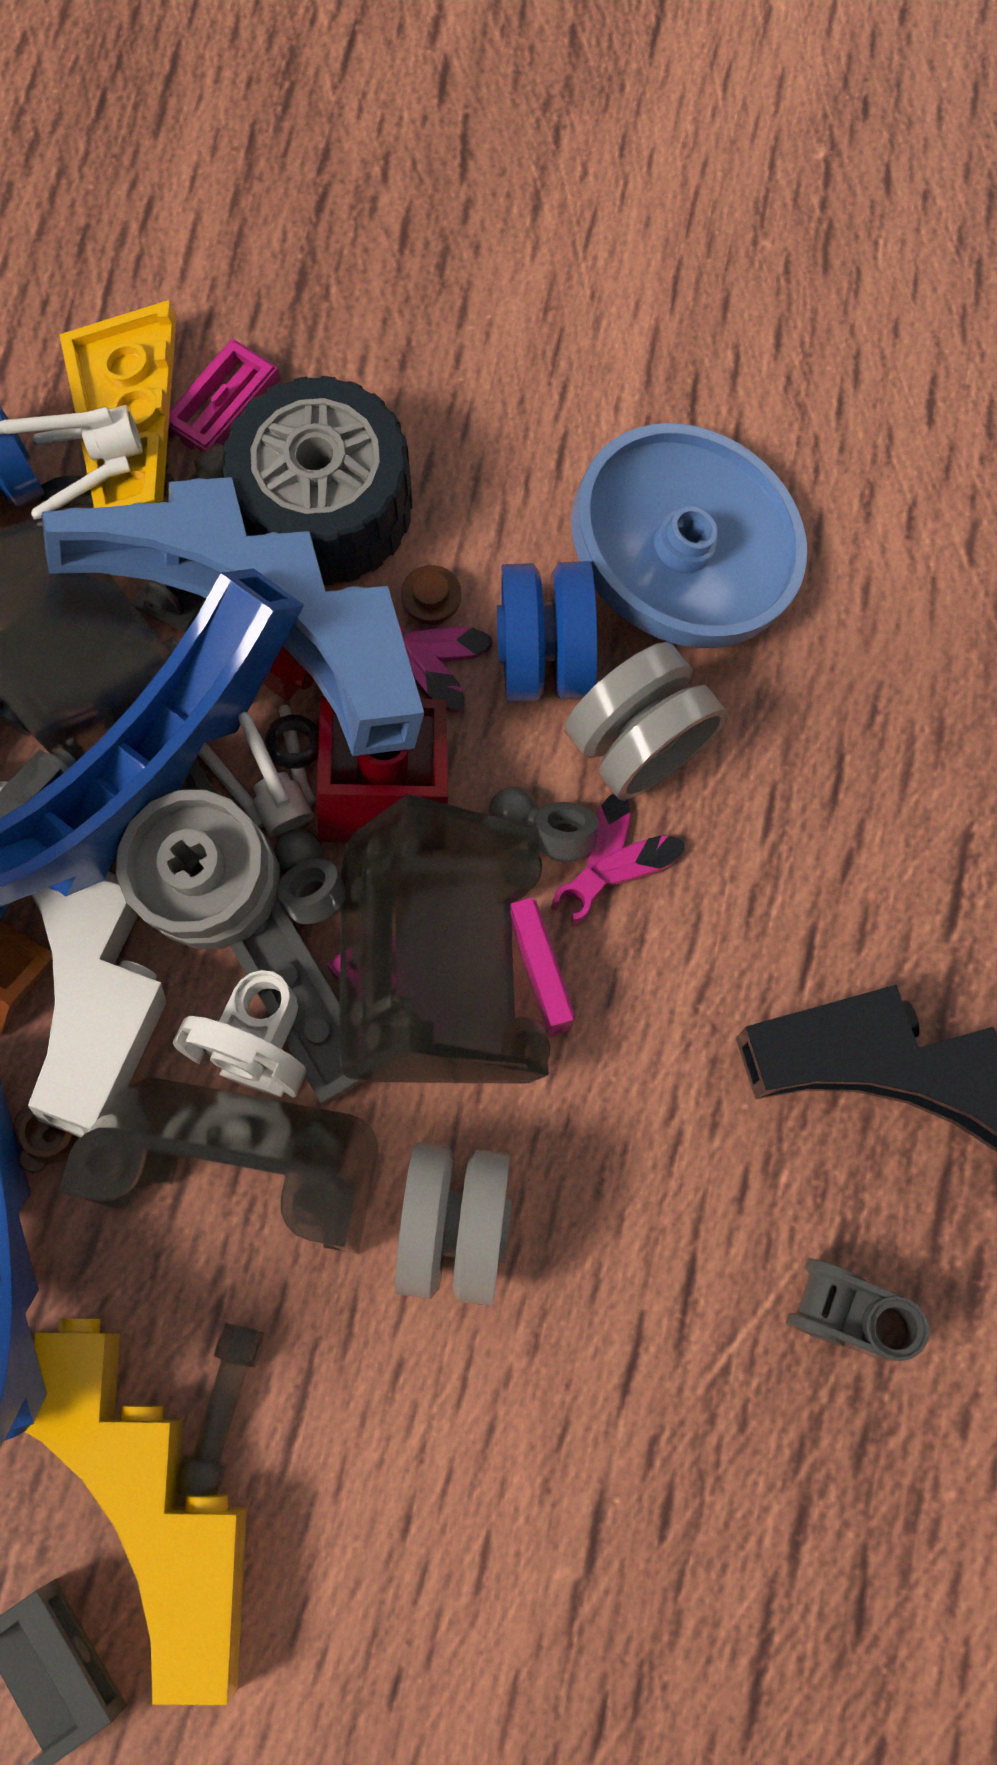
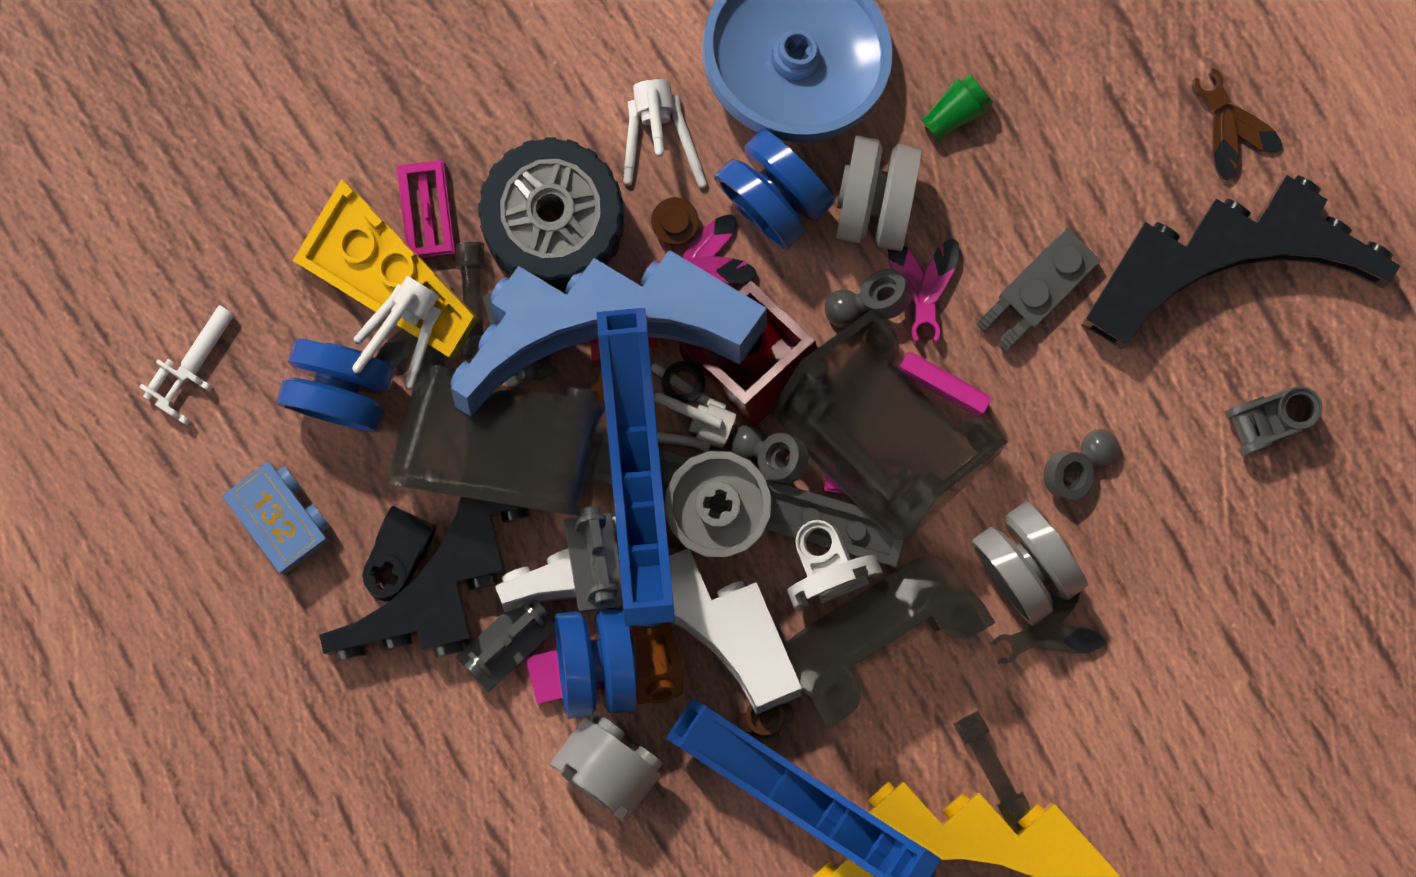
camera: 40 degrees left, 10 degrees up
(410, 1323) = (1051, 636): none -> clear smoke piece
(508, 481) = (654, 105): none -> white plant
(639, 1177) = (1098, 449): none -> dark grey plate
(728, 963) = (1042, 285): none -> dark grey hinge
(800, 721) = (957, 107): none -> green cone

